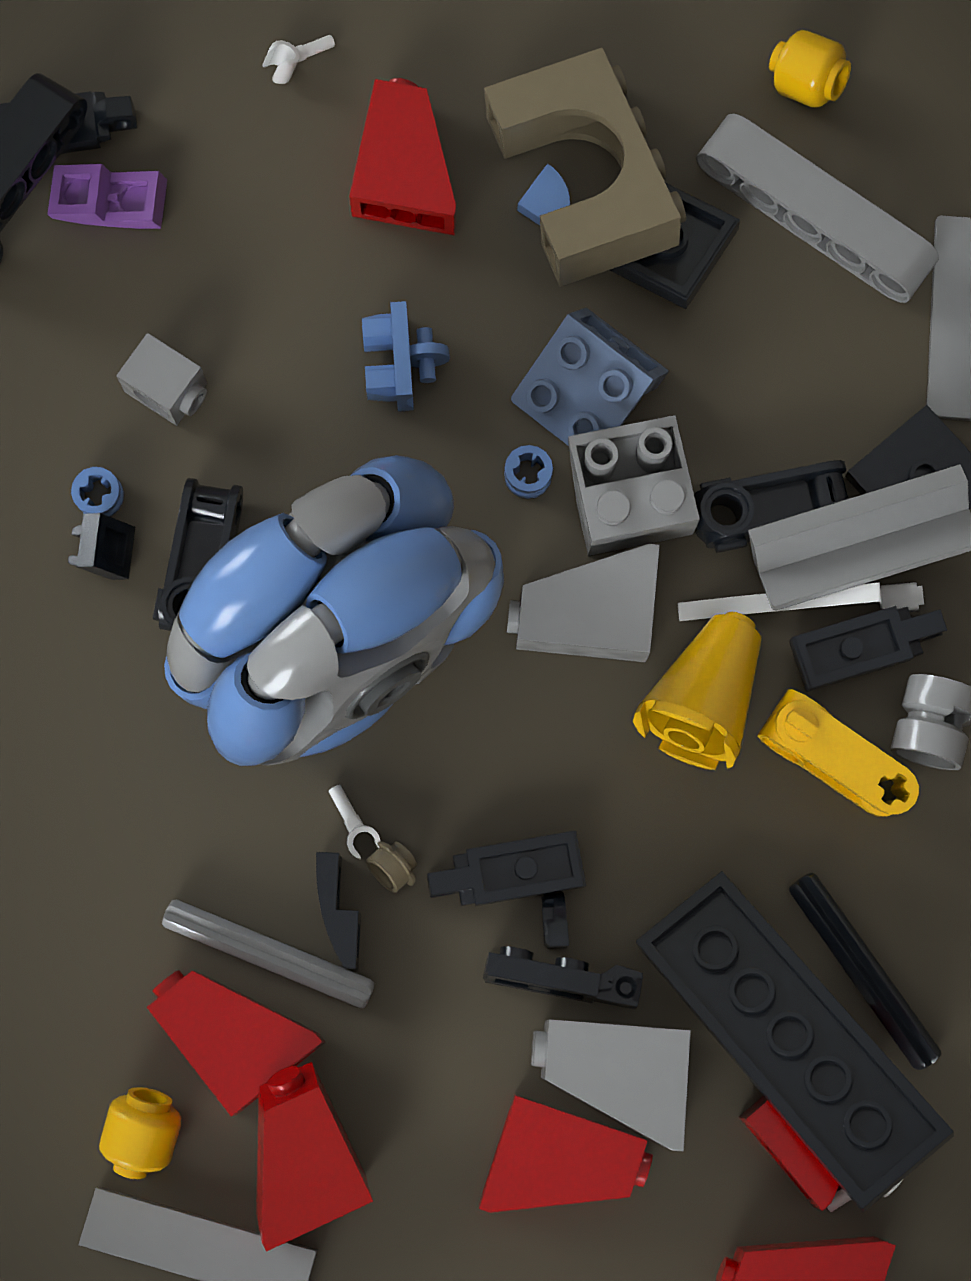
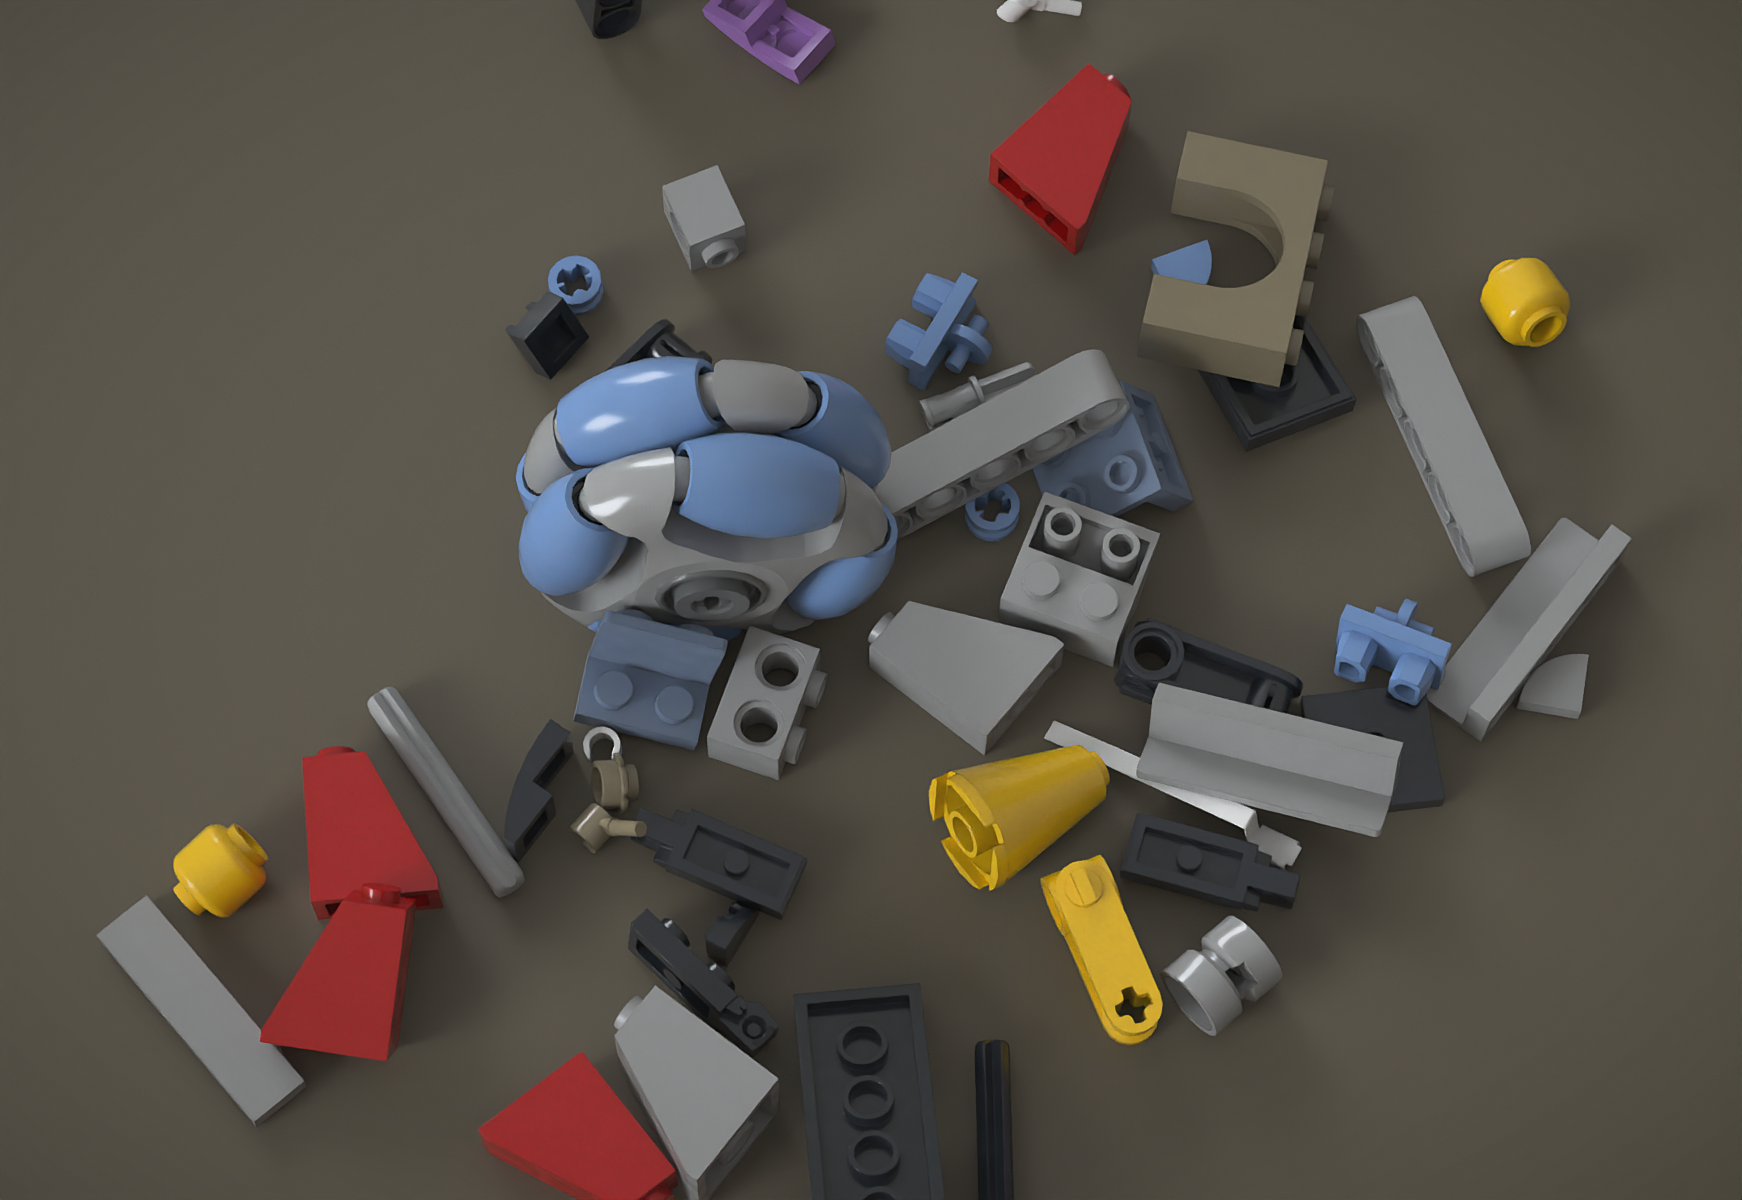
camera: 35 degrees right, 10 degrees down
(367, 772) = (648, 678): none -> sand blue bracket
(401, 907) = (598, 826): none -> dark tan hand
(453, 732) = (753, 700): none -> light grey brick
(462, 392) = (954, 403): none -> light grey axle
(512, 411) = (1001, 439): none -> light grey beam
(890, 388) = (1393, 644): none -> medium blue hips

